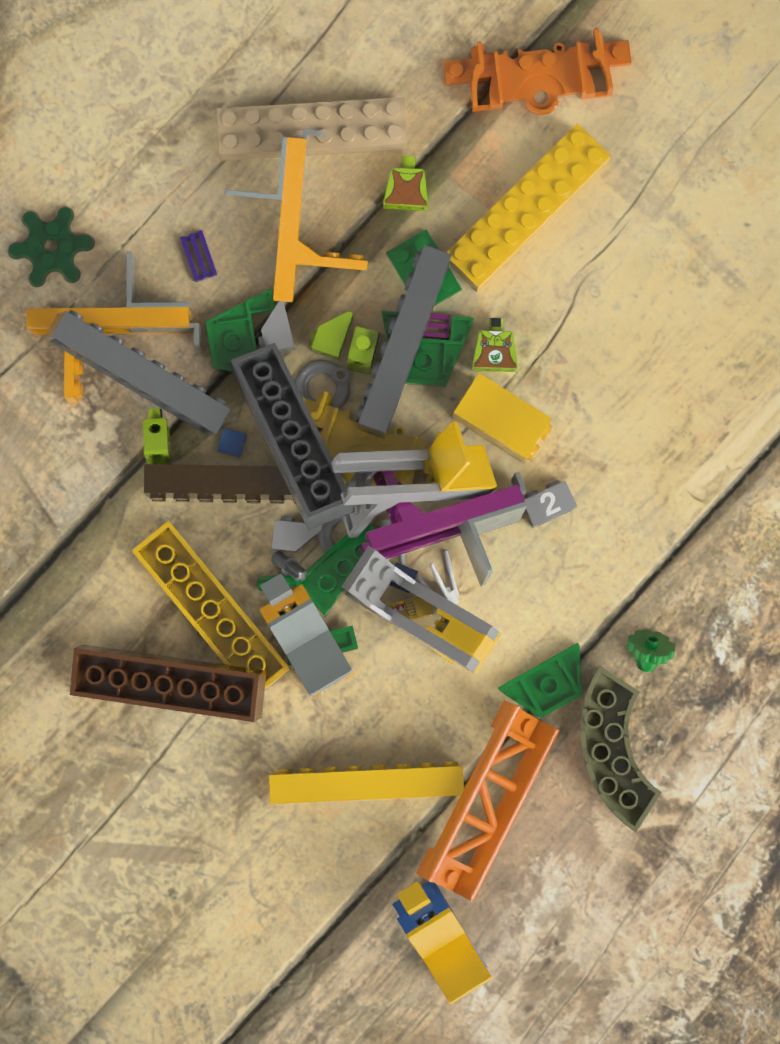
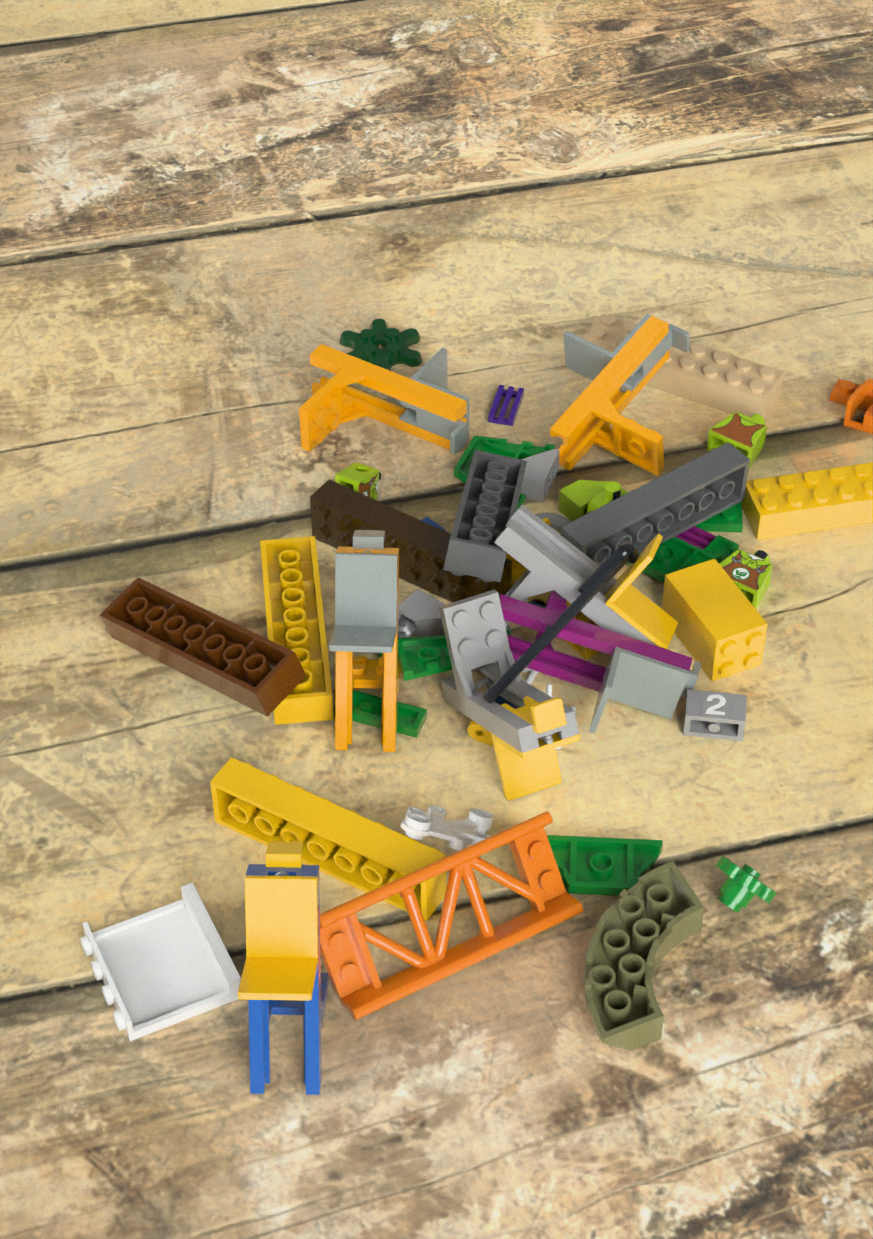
camera: 30 degrees right, 40 degrees down
(137, 373) = (380, 419): dark grey brick -> none
(324, 939) = (162, 966): none -> white panel
(428, 493) = (623, 554): none -> black bar
(439, 732) = (455, 831): none -> white plant

